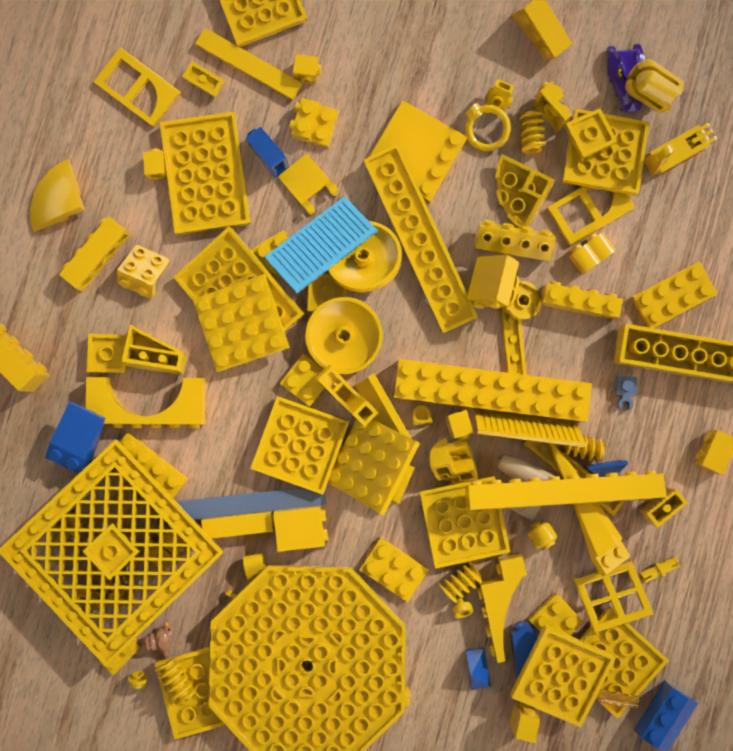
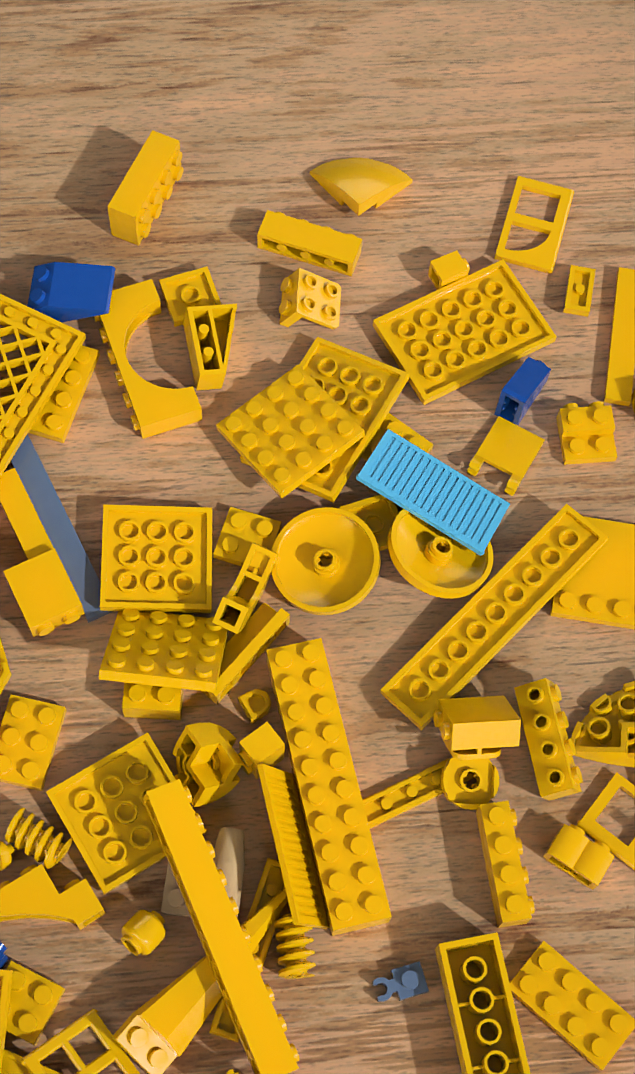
camera: 65 degrees right, 20 degrees down
(606, 467) = (282, 1002): blue slope -> none

